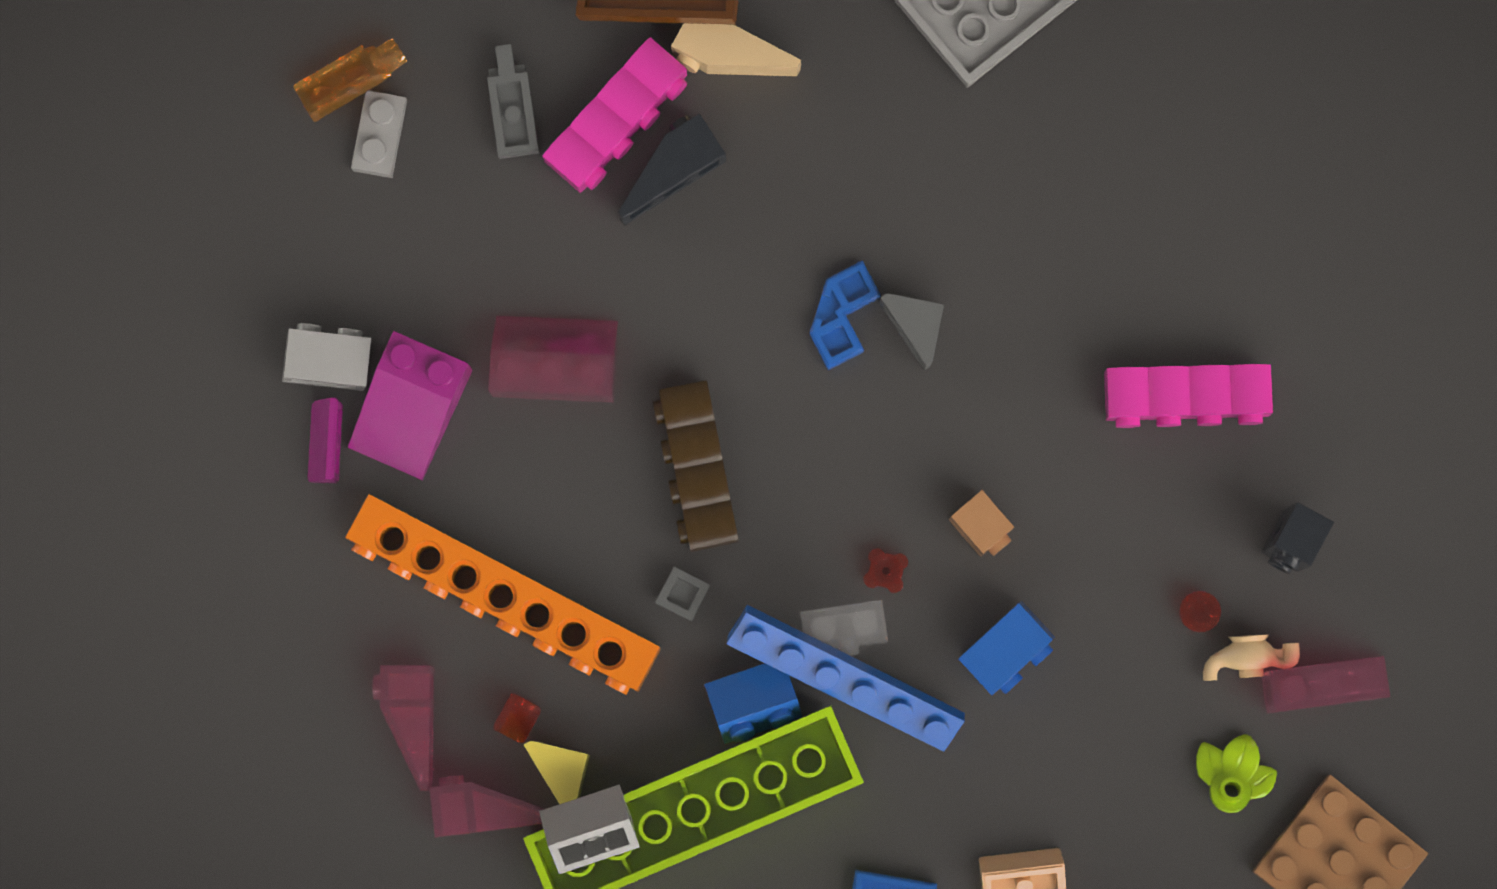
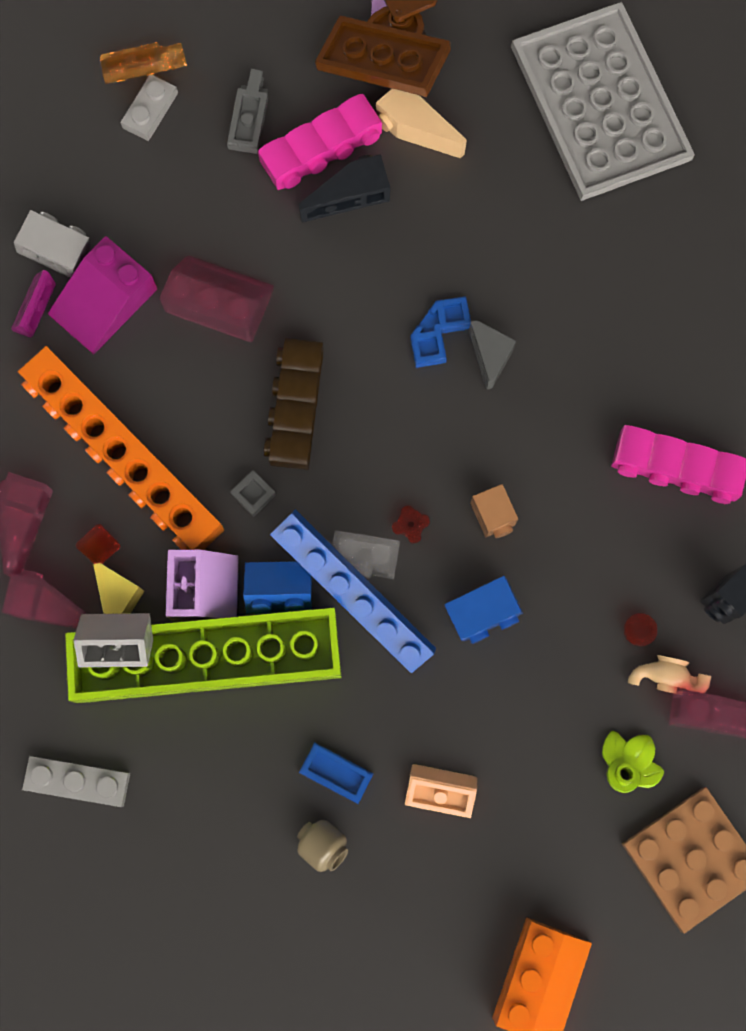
camera: 15 degrees right, 5 degrees down
(662, 728) = (201, 585): none -> lavender slope

